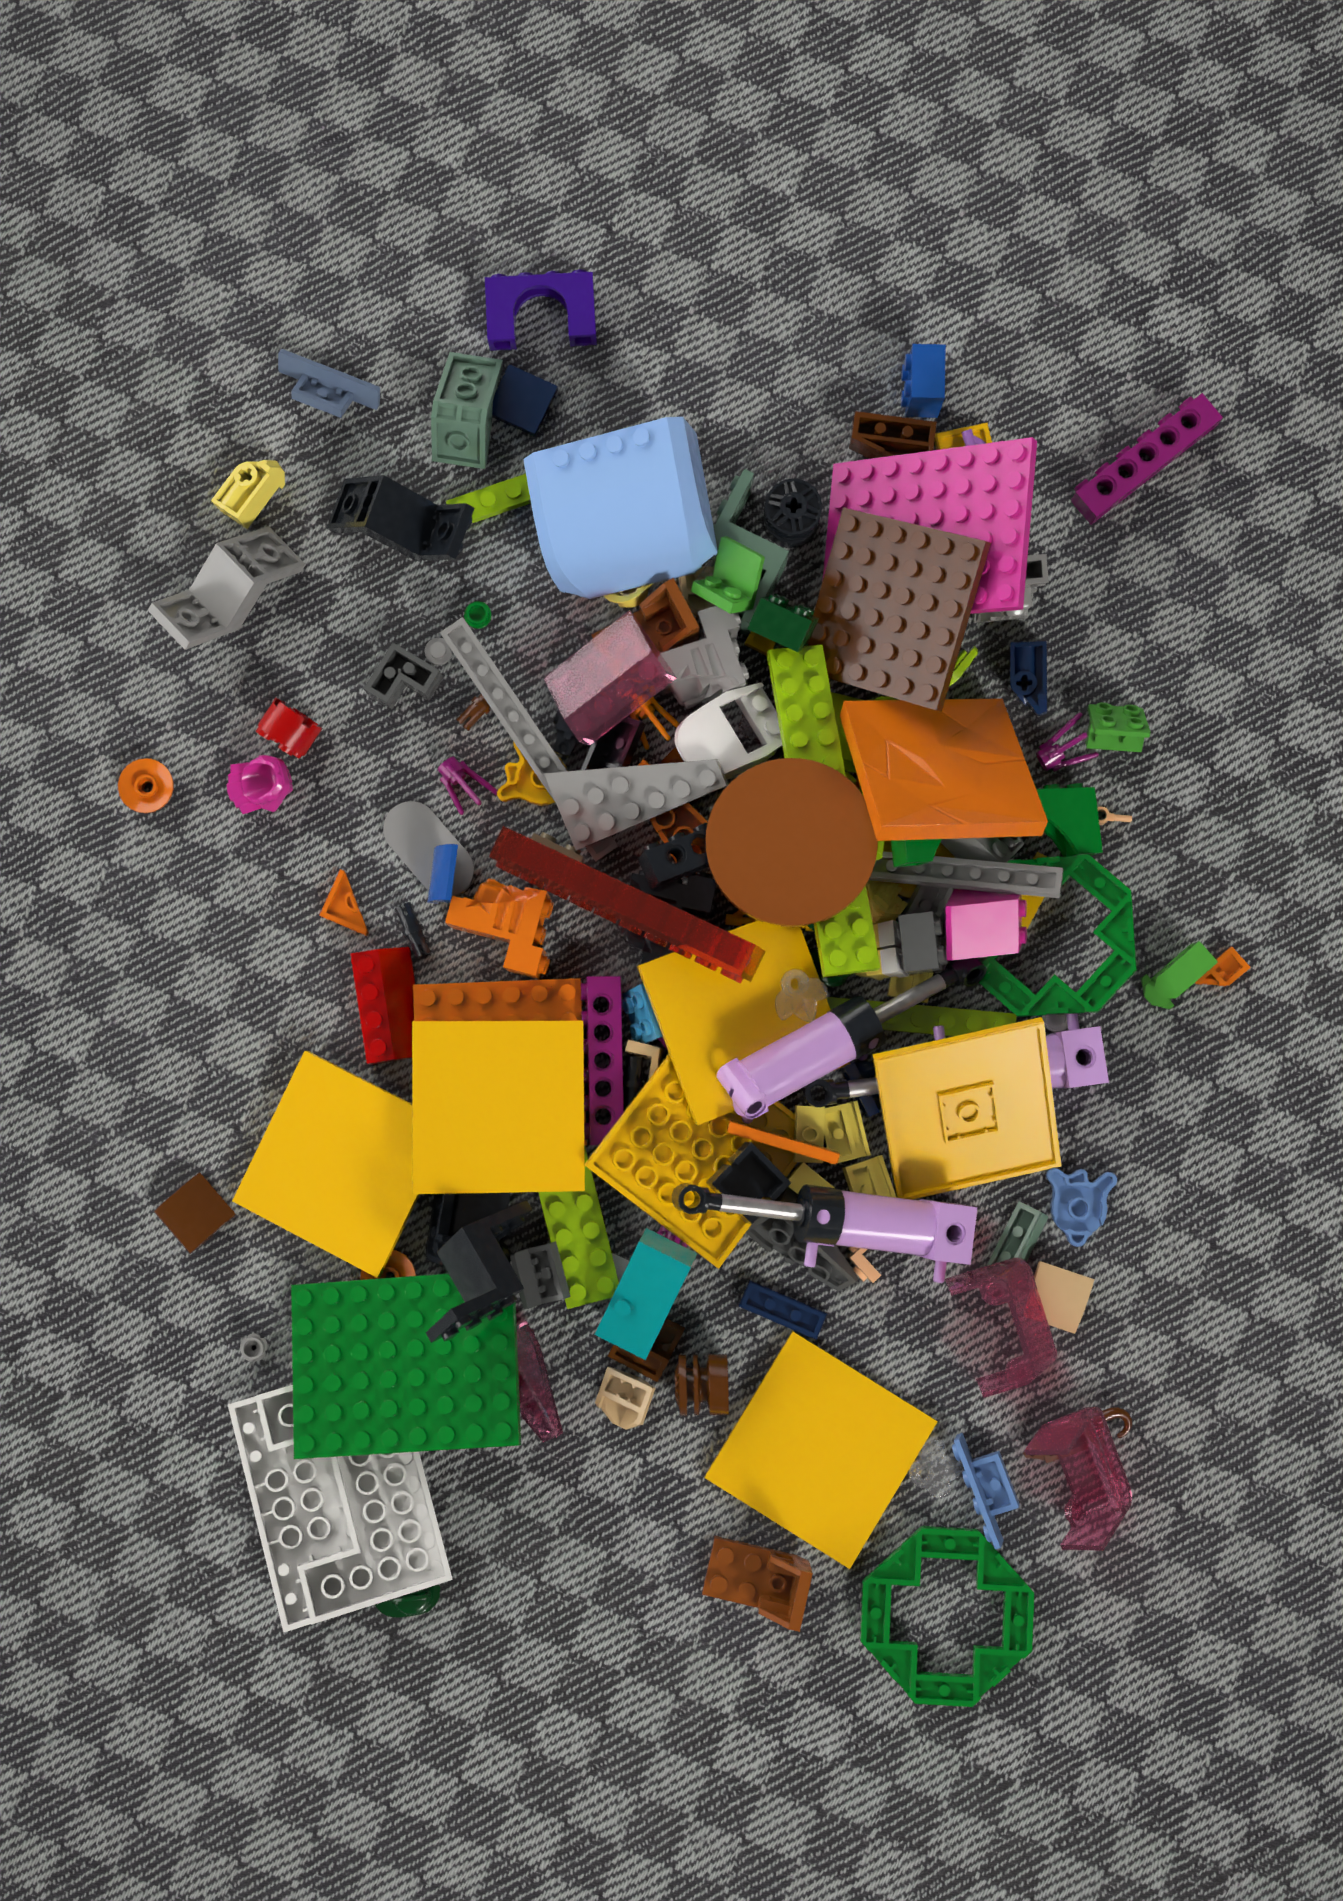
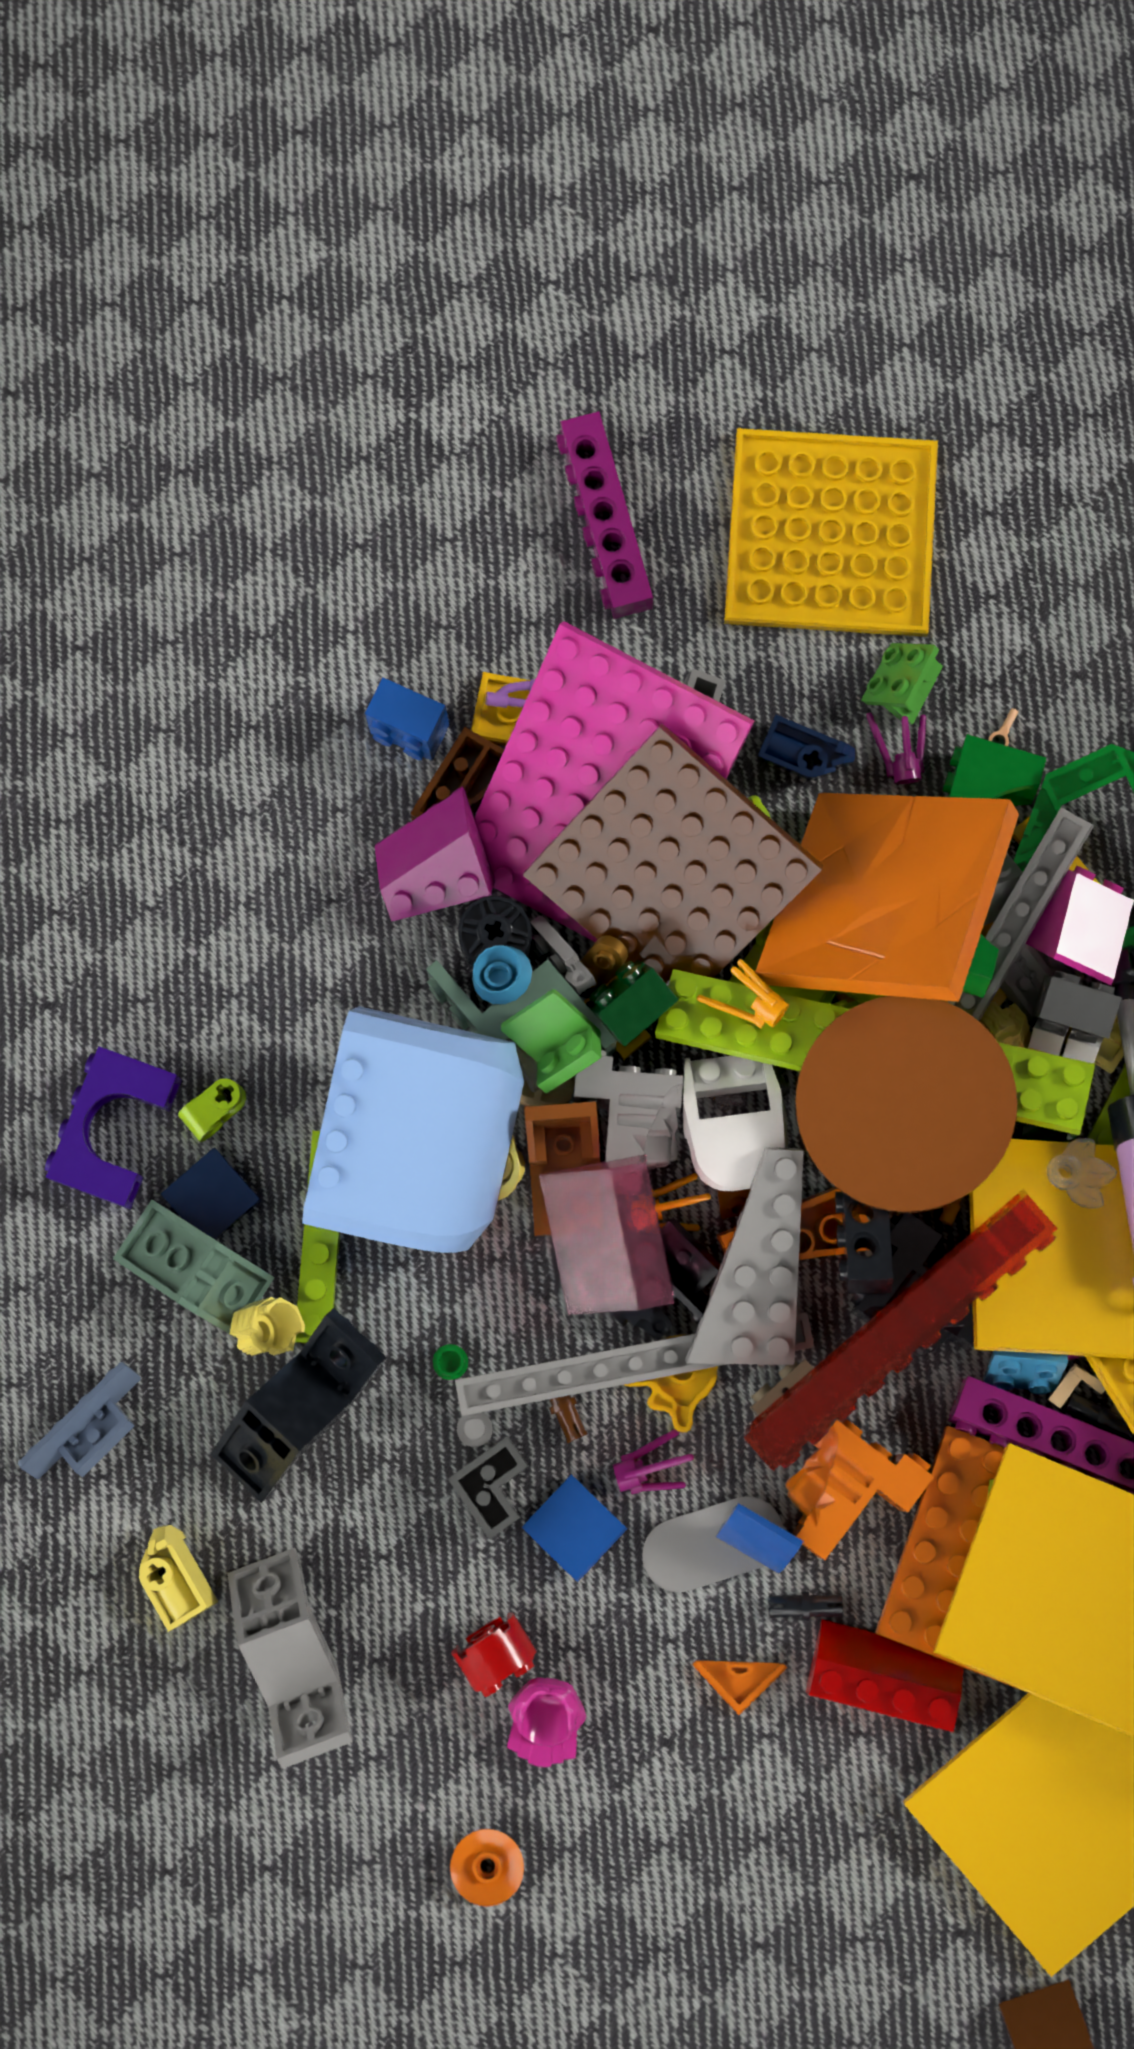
camera: 65 degrees left, 5 degrees down
(399, 748) = (574, 1528): none -> blue slope
(446, 475) = (267, 1326): none -> light yellow hair
(581, 370) = (210, 1111): none -> lime piece
(763, 522) = (501, 974): none -> dark azure hat
(796, 566) = (561, 955): none -> light grey hinge
(807, 594) = (604, 959): none -> pearl gold plate
(821, 718) = (768, 1004): none -> light orange plant
(827, 443) = (434, 861): none -> magenta wedge
(1209, 629) = (831, 532): none -> yellow tile

